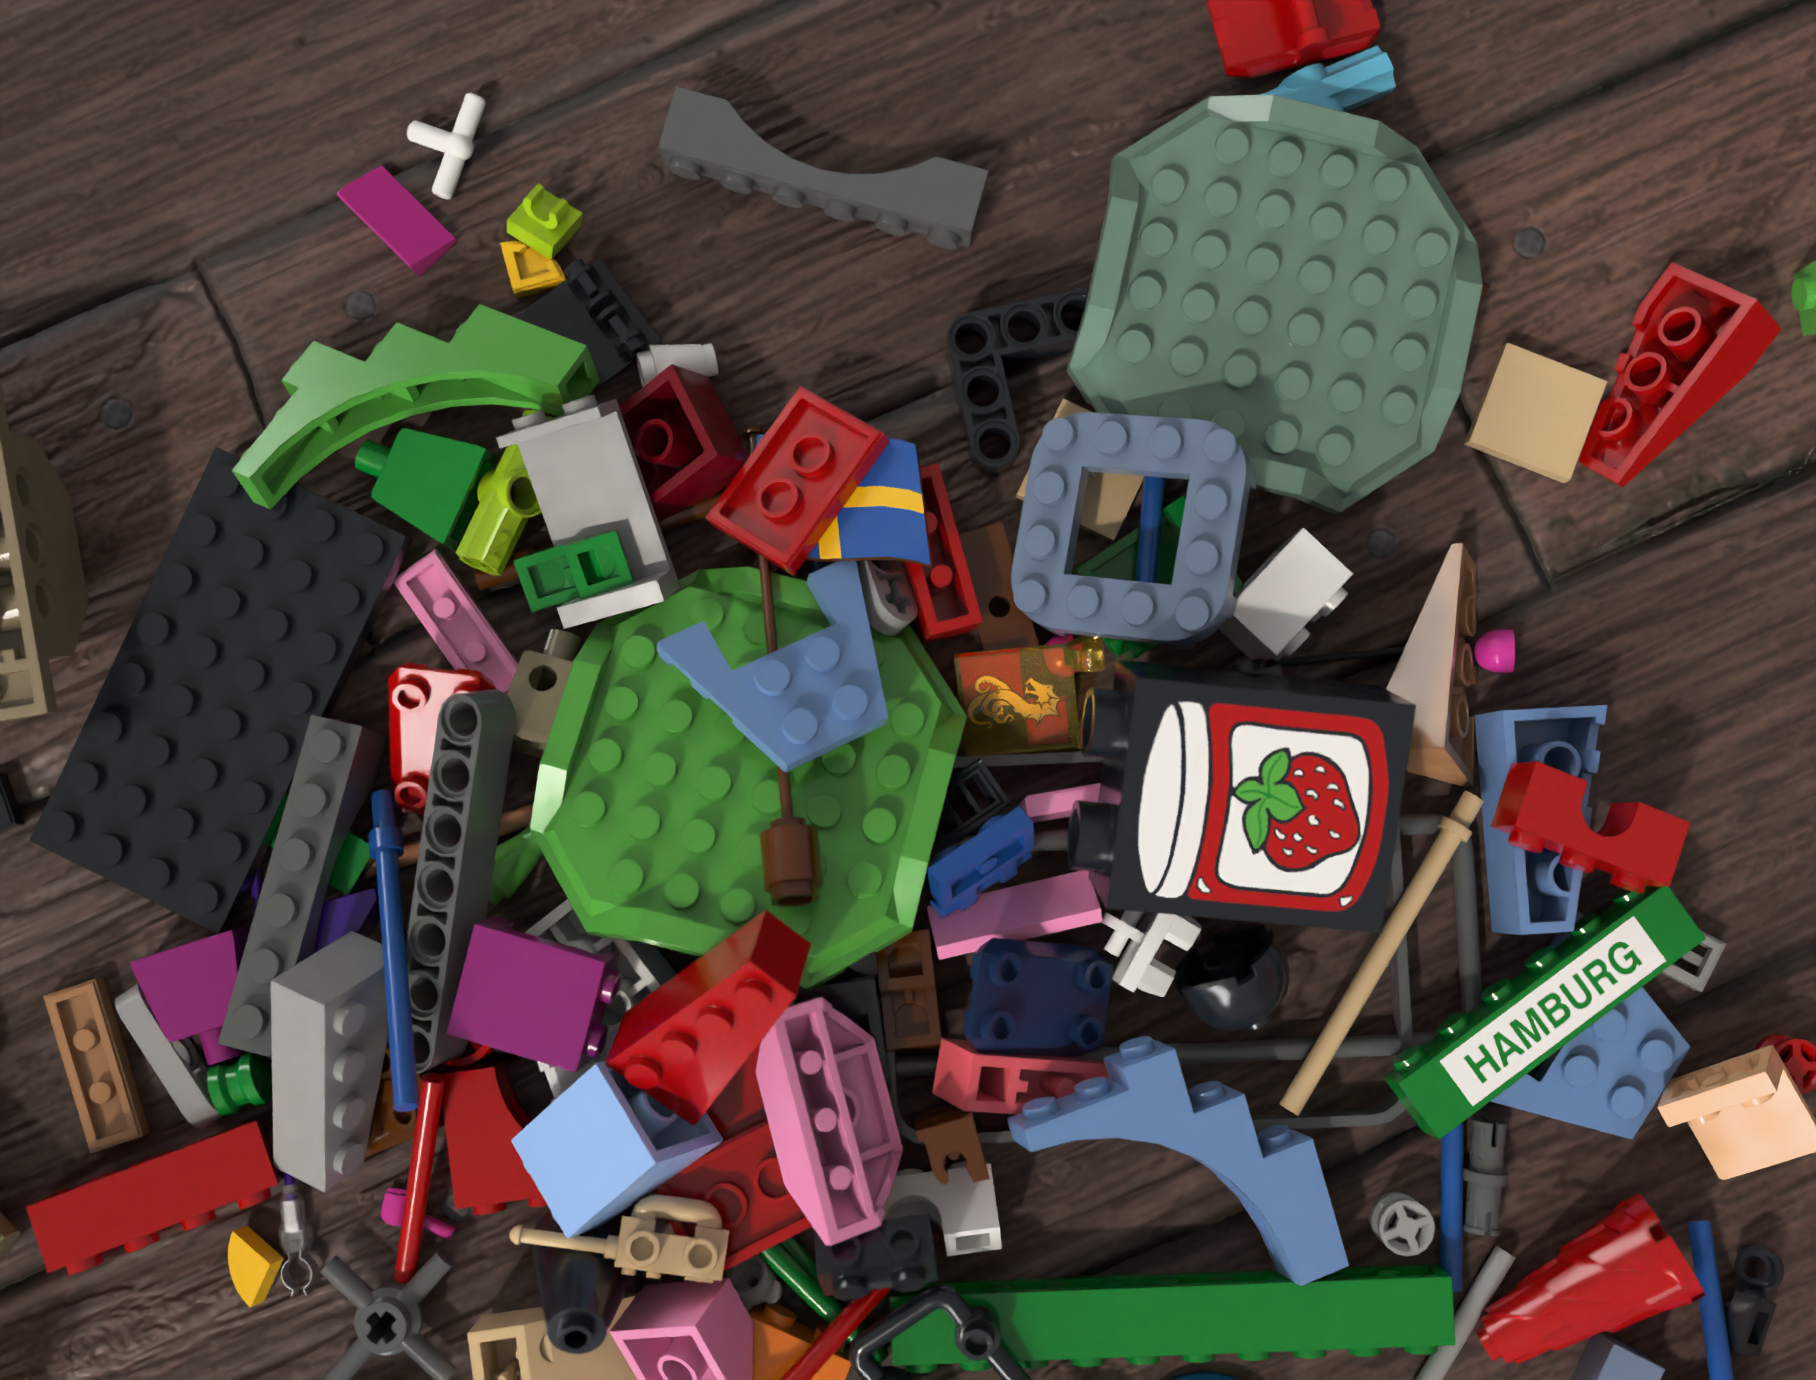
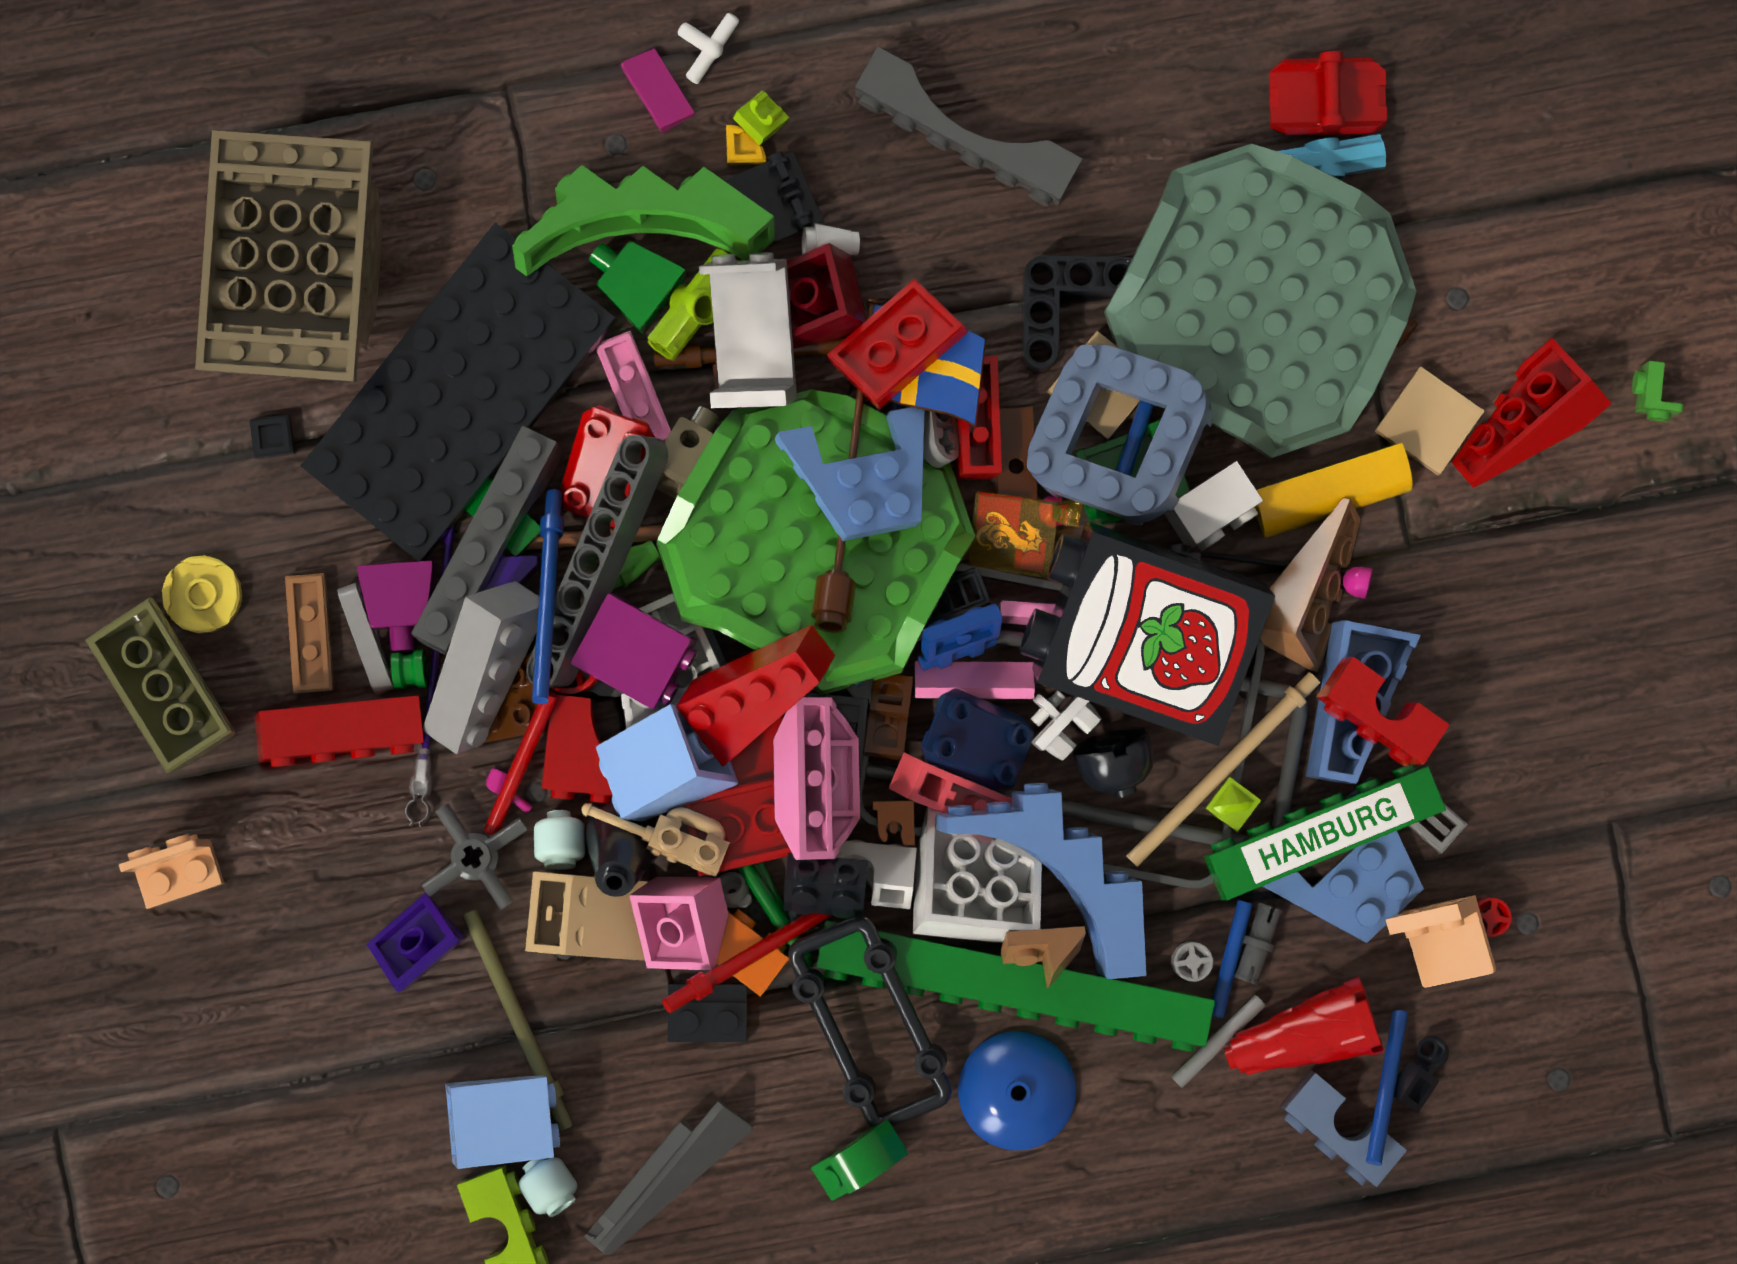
camera: 10 degrees right, 0 degrees up
(252, 1265) = (387, 797): yellow tile -> none
(498, 1271) = (559, 840): none -> light aqua head
(574, 570) = (726, 369): green slope -> none
(1084, 1204) = (973, 886): none -> white wedge
(1212, 1260) = (1051, 946): none -> medium nougat slope
(1407, 997) = (1232, 804): none -> lime tile
(1420, 541) = (1317, 493): none -> yellow brick

